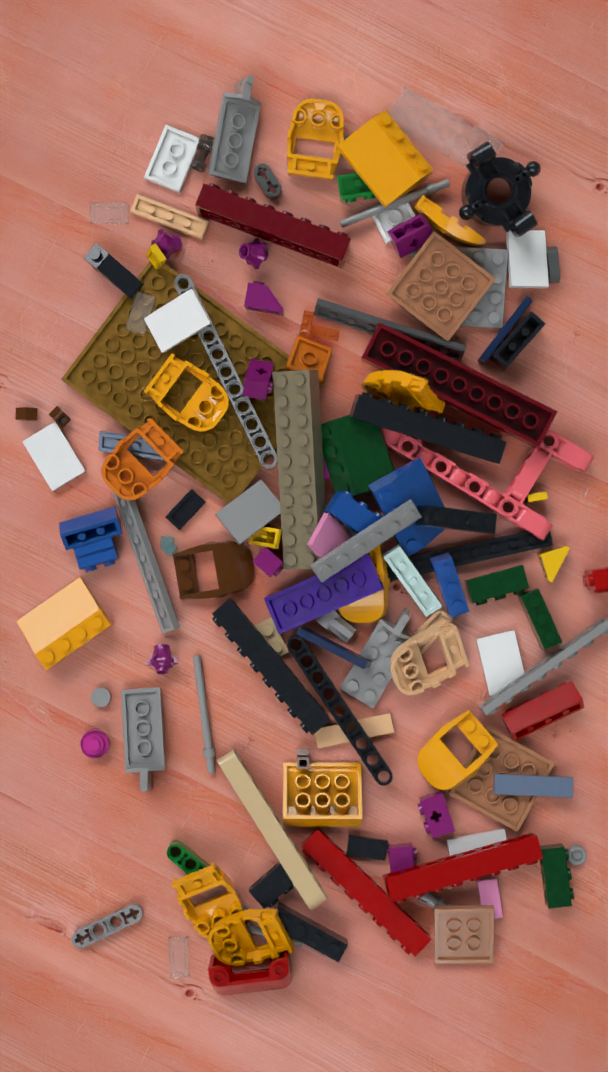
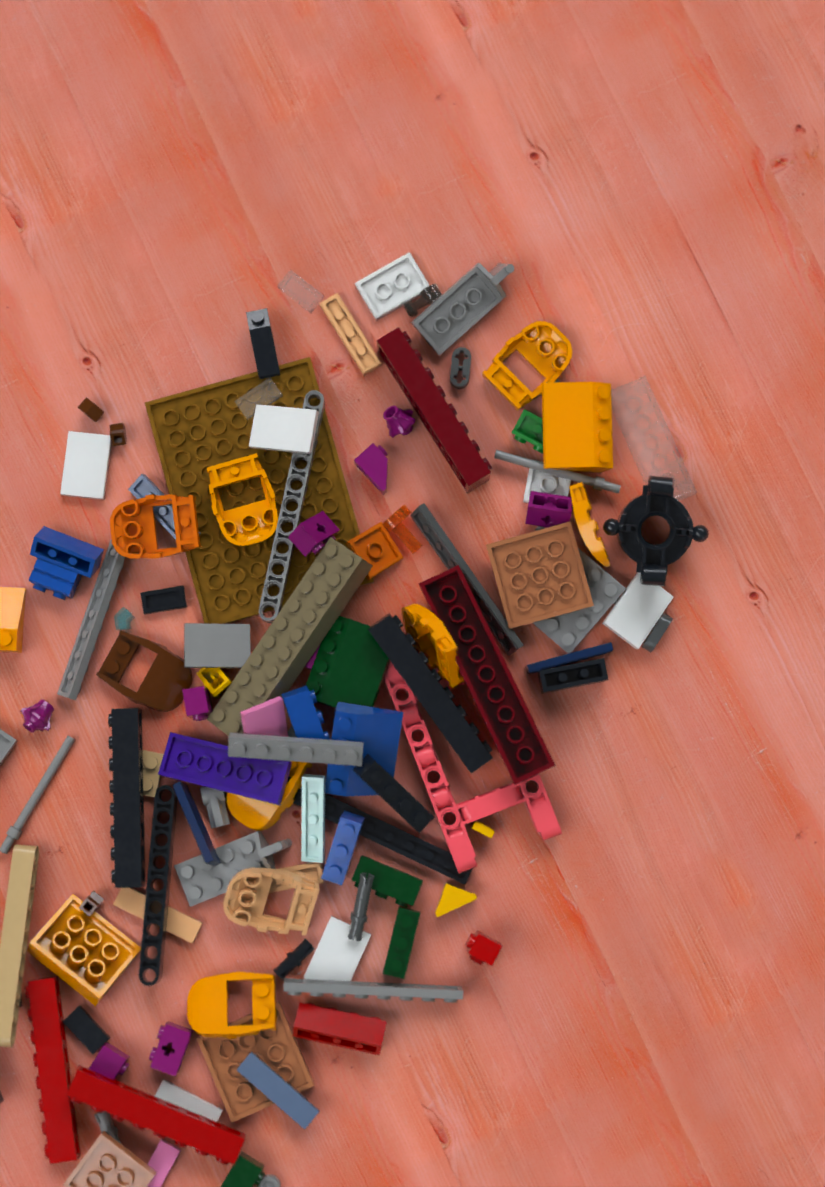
camera: 35 degrees right, 5 degrees down
(156, 256) = (309, 359): yellow tile -> none
(167, 243) = (328, 355): magenta rock -> none
(473, 688) = (294, 959): none -> black pin
(497, 624) = (358, 916): none -> dark grey pin

